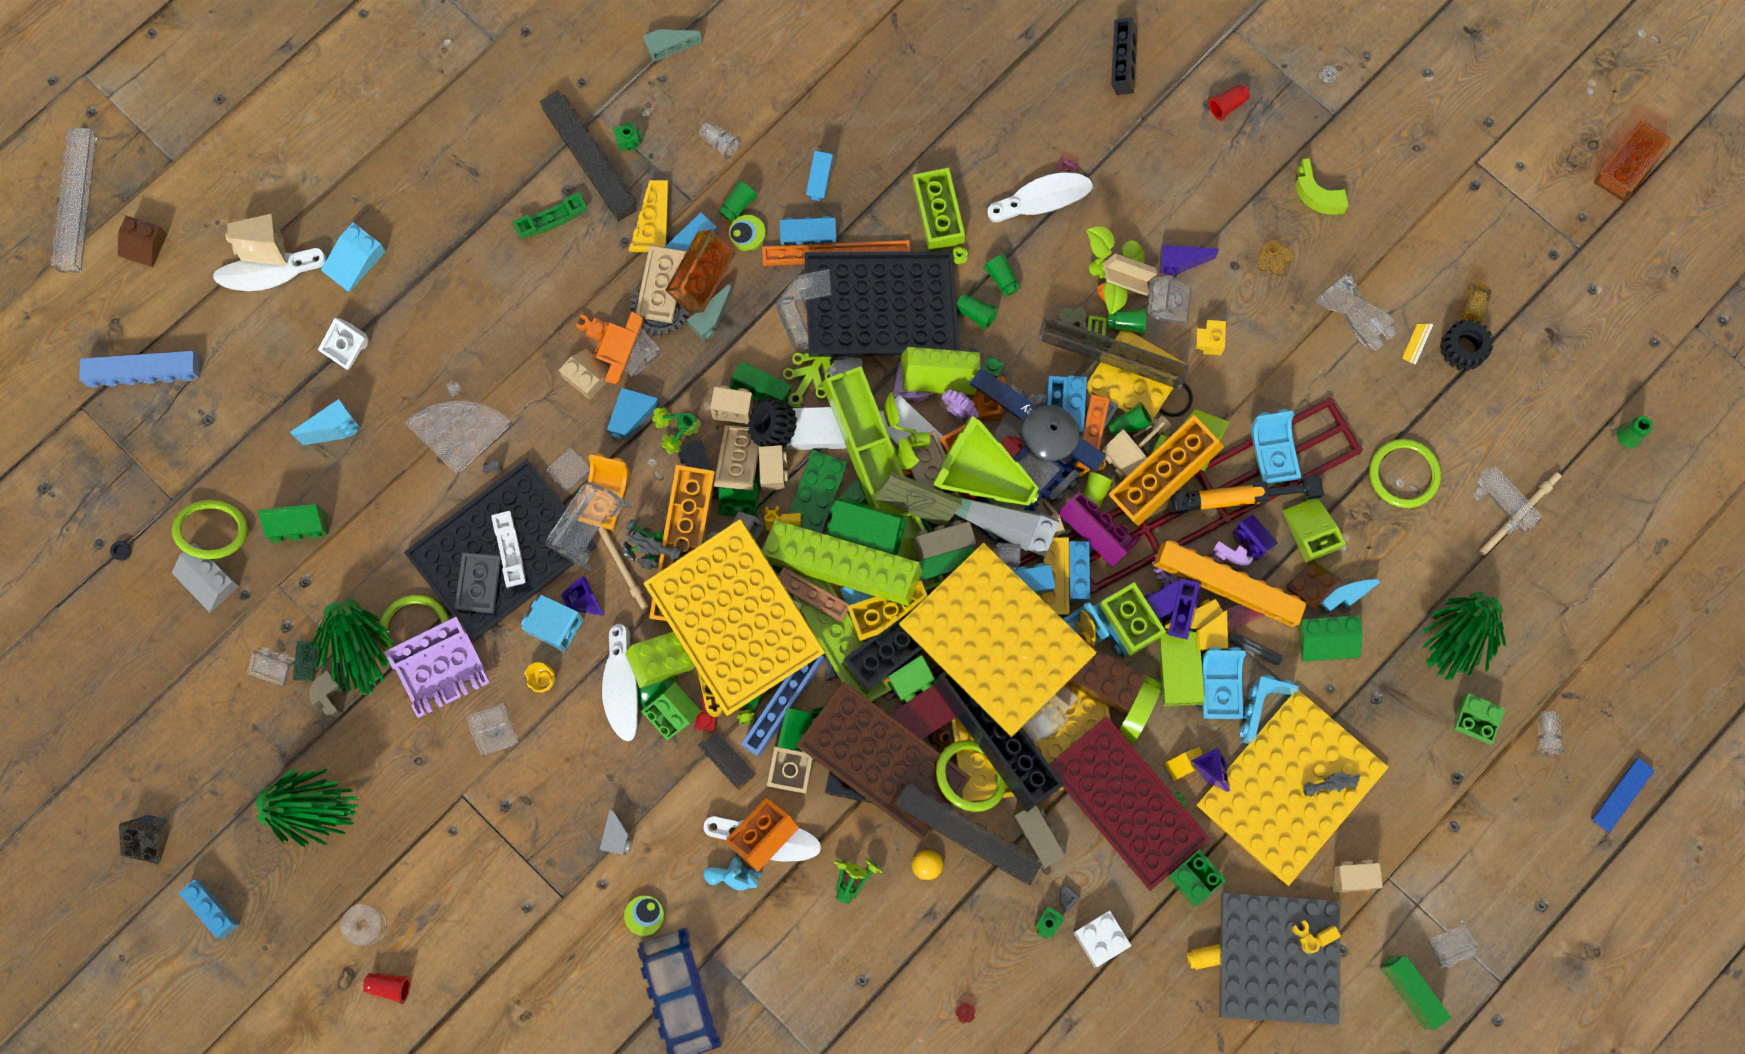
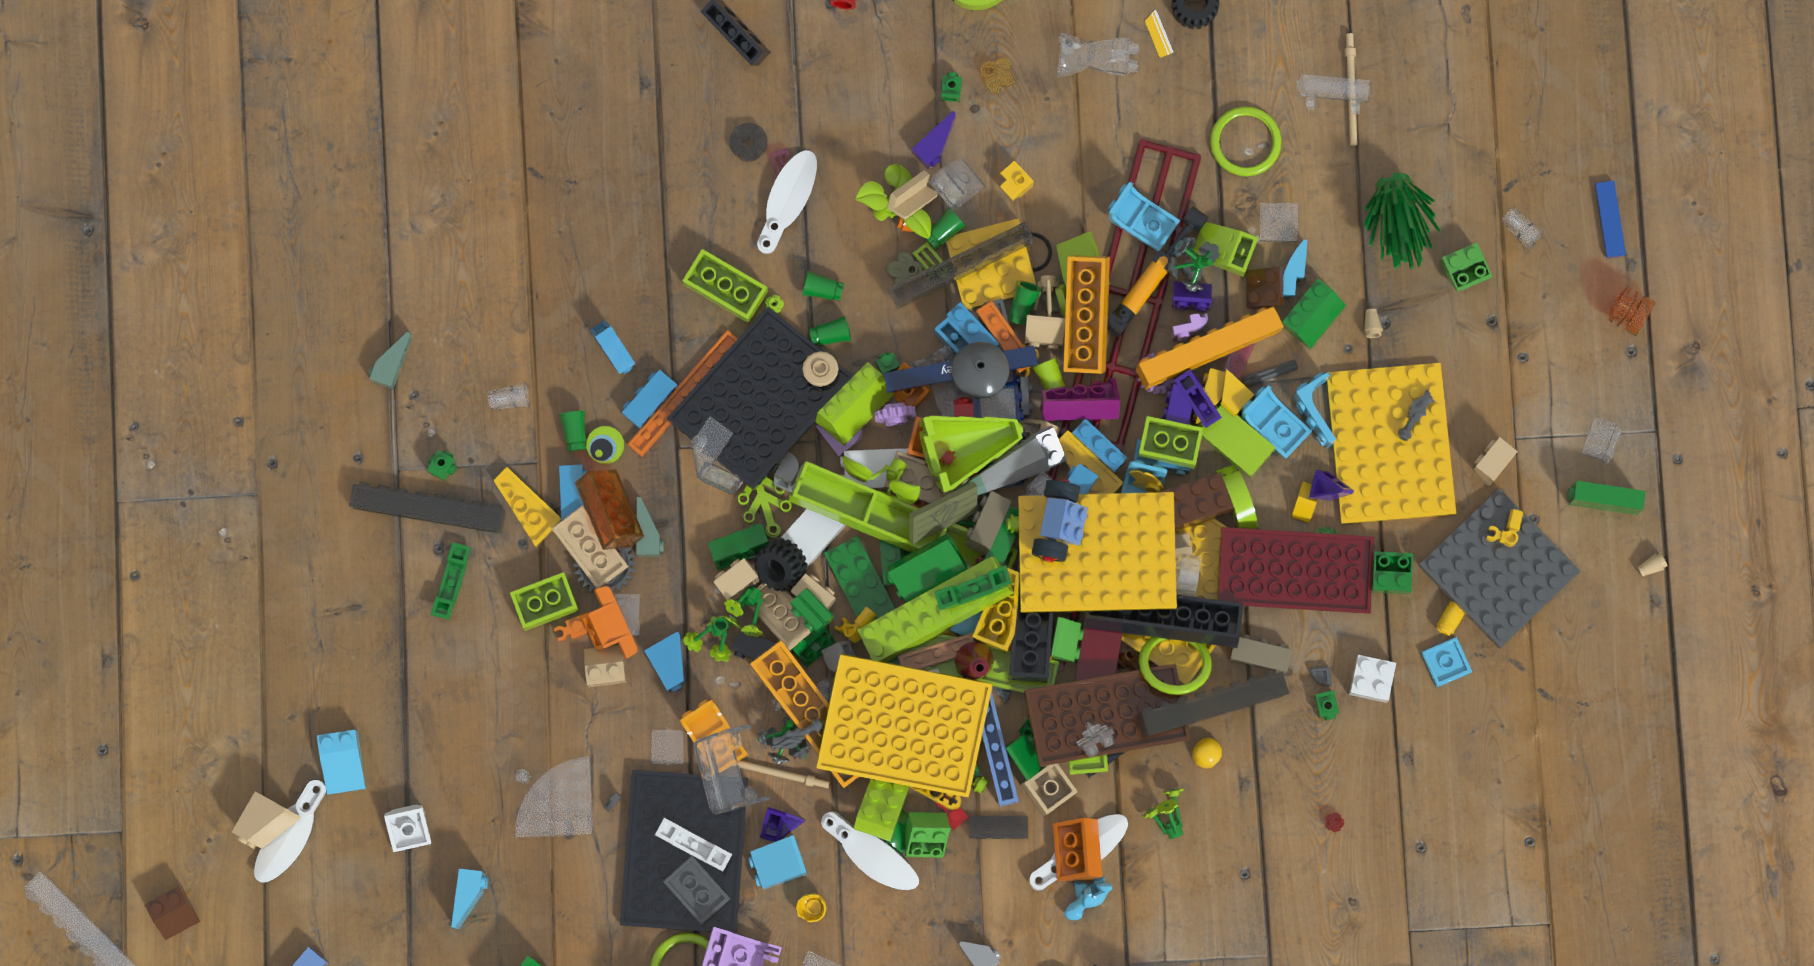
camera: 45 degrees left, 5 degrees up
(593, 289) = (544, 601): none -> lime brick
(730, 426) = (749, 597): none -> plant
(756, 472) = (811, 610): none -> green brick
(833, 783) = (1089, 765): none -> lime tile
(838, 623) = (974, 660): none -> dark red cone
(855, 764) = (1094, 735): none -> clear hips
(880, 570) = (973, 589): none -> green slope
(942, 323) = (820, 369): none -> tan wheel
(959, 558) = (1012, 523): none -> lime plate
(962, 466) = (947, 458): none -> clear red plate
(993, 587) = (1062, 521): none -> brick
(1059, 126) = (756, 149): none -> clear smoke plate
(1169, 985) = (1446, 662): none -> medium azure tile
(1230, 239) = (951, 94): none -> green brick
(1276, 517) = (1195, 268): none -> dark grey plant
(1366, 689) = (1372, 324): none -> tan cone
(1371, 550) = (1278, 222): none -> clear plate
(1573, 875) = (1631, 311): none -> clear orange wheel

